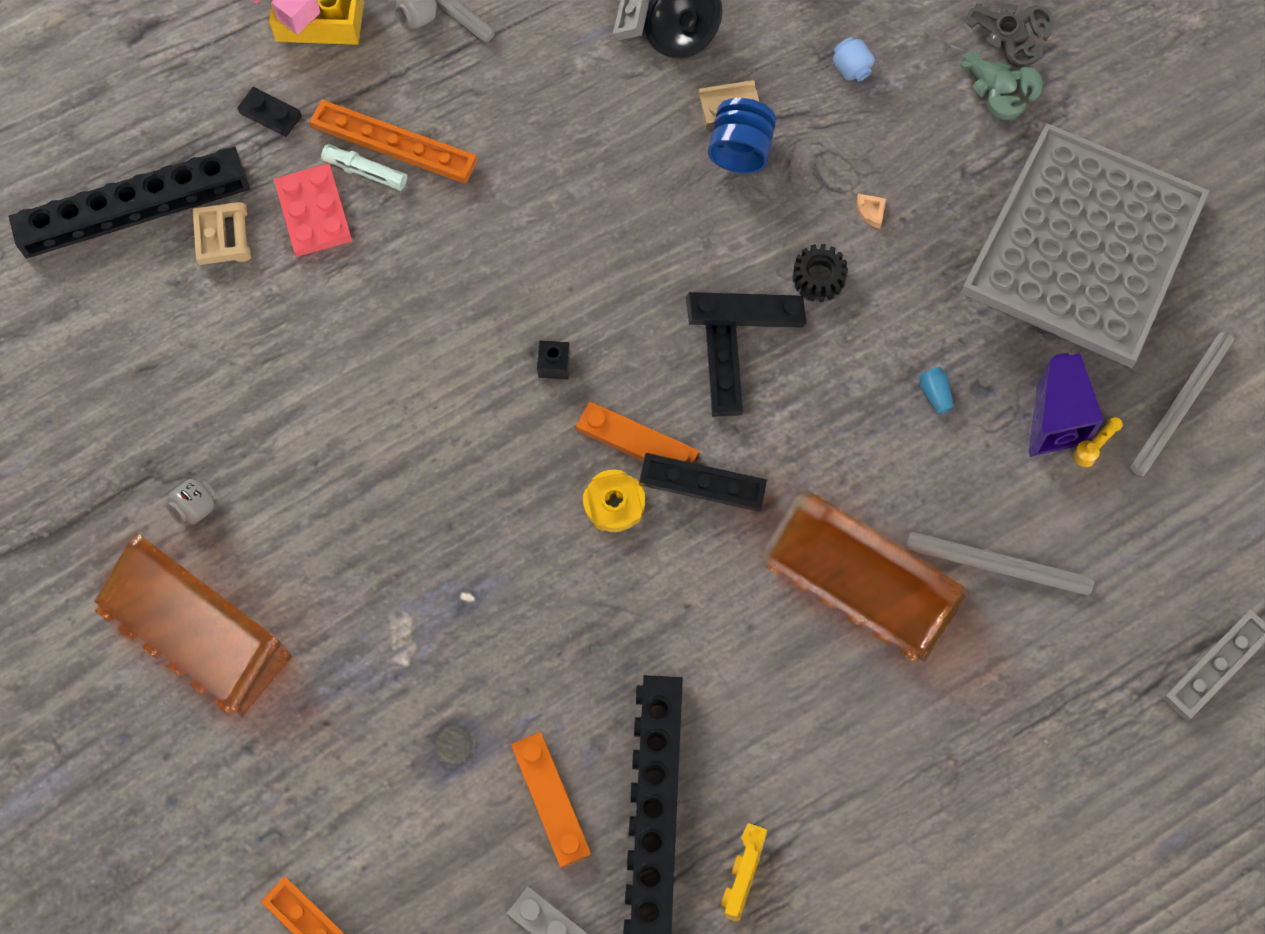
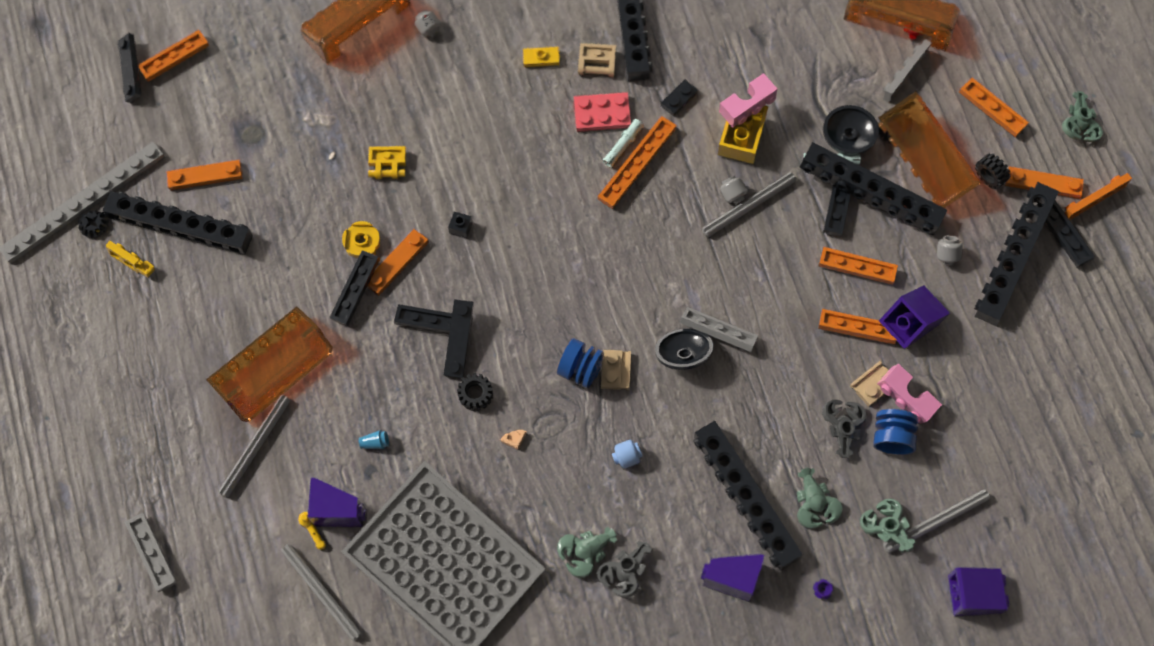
camera: 105 degrees right, 0 degrees up
(226, 317) = (541, 56): none -> yellow plate
(456, 503) = (387, 156): none -> yellow plate

